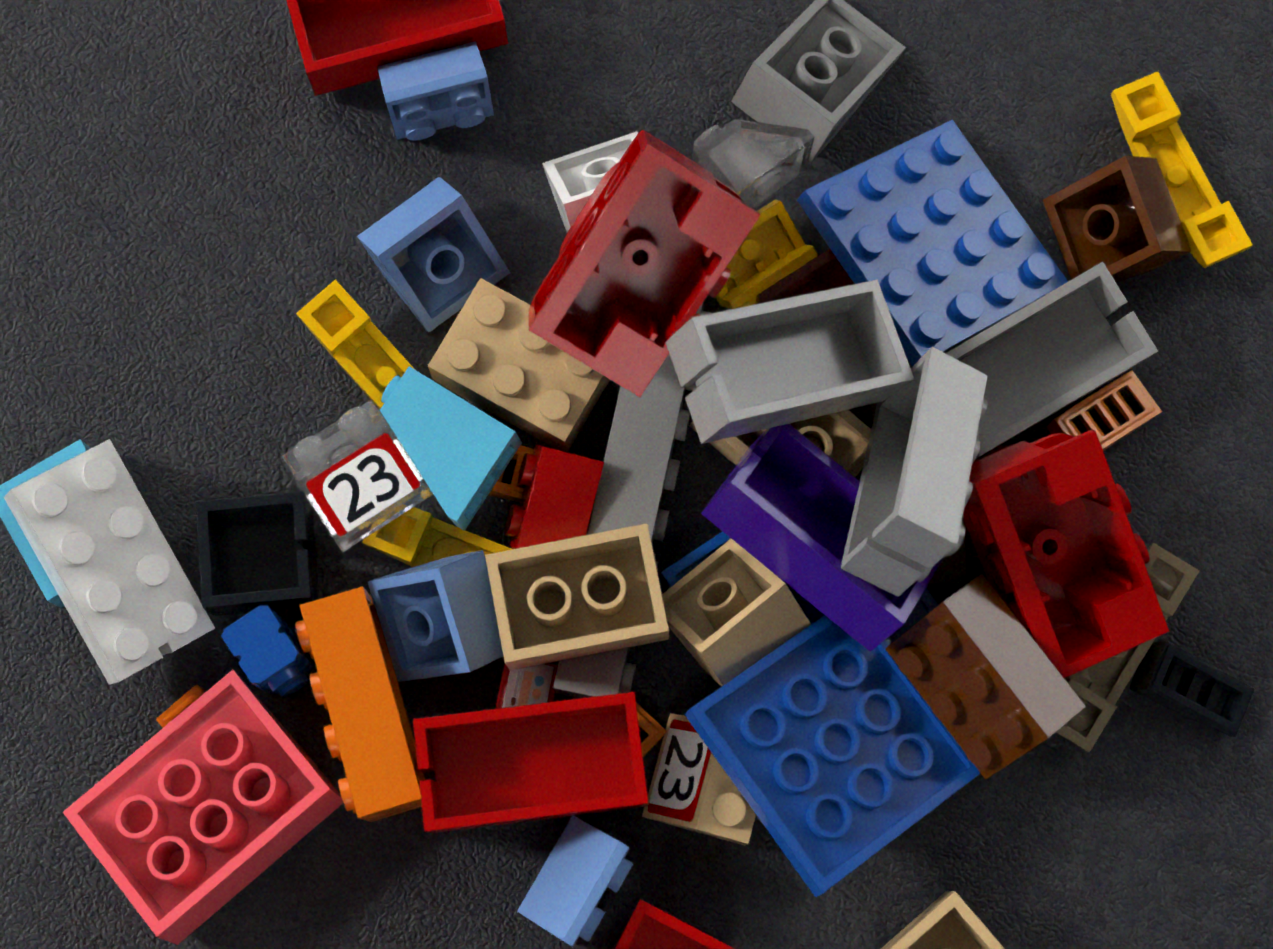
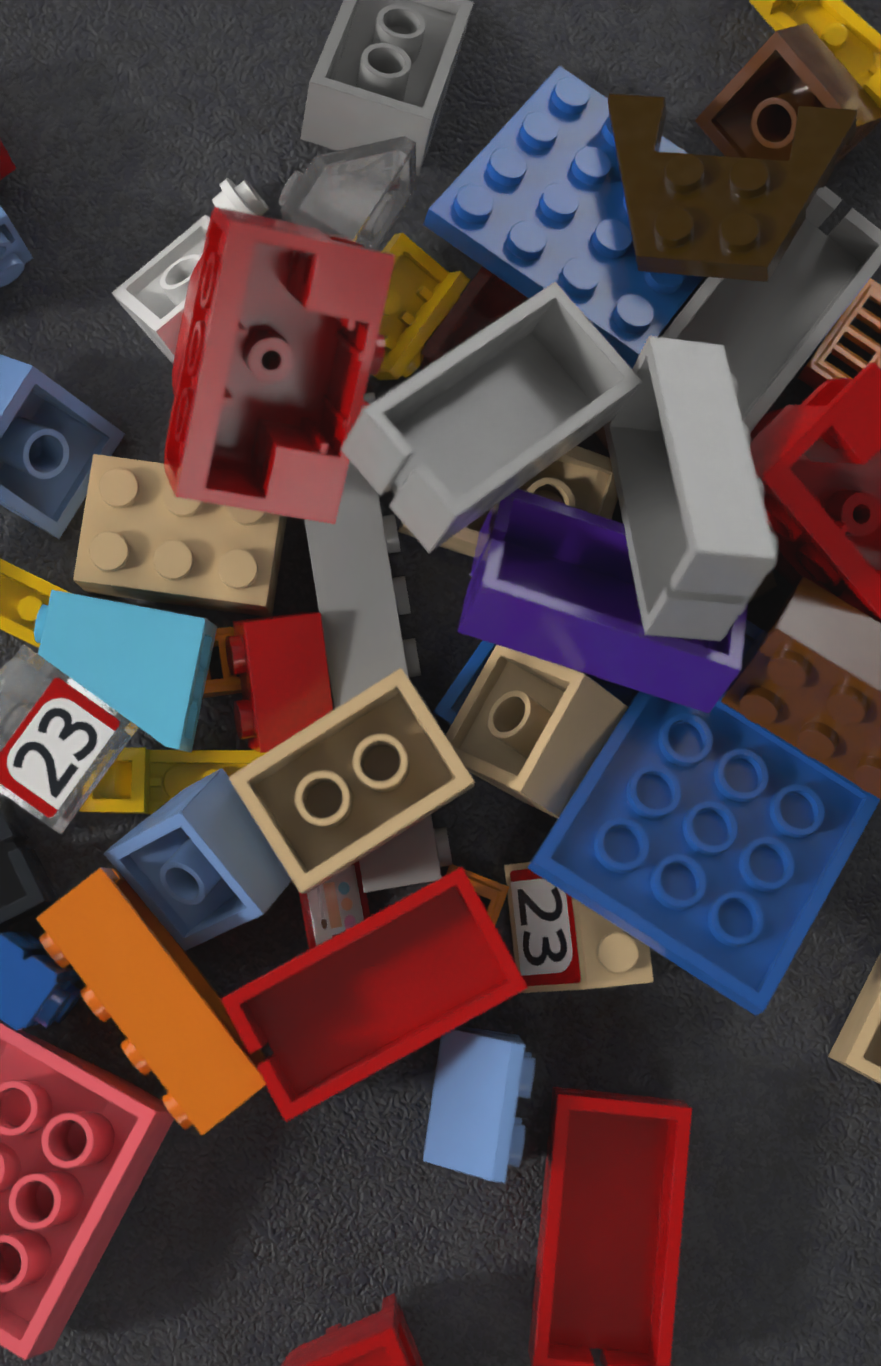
camera: 25 degrees left, 5 degrees up
(667, 130) = (240, 198): none -> white plate
(1028, 275) = (719, 211): none -> dark brown wing

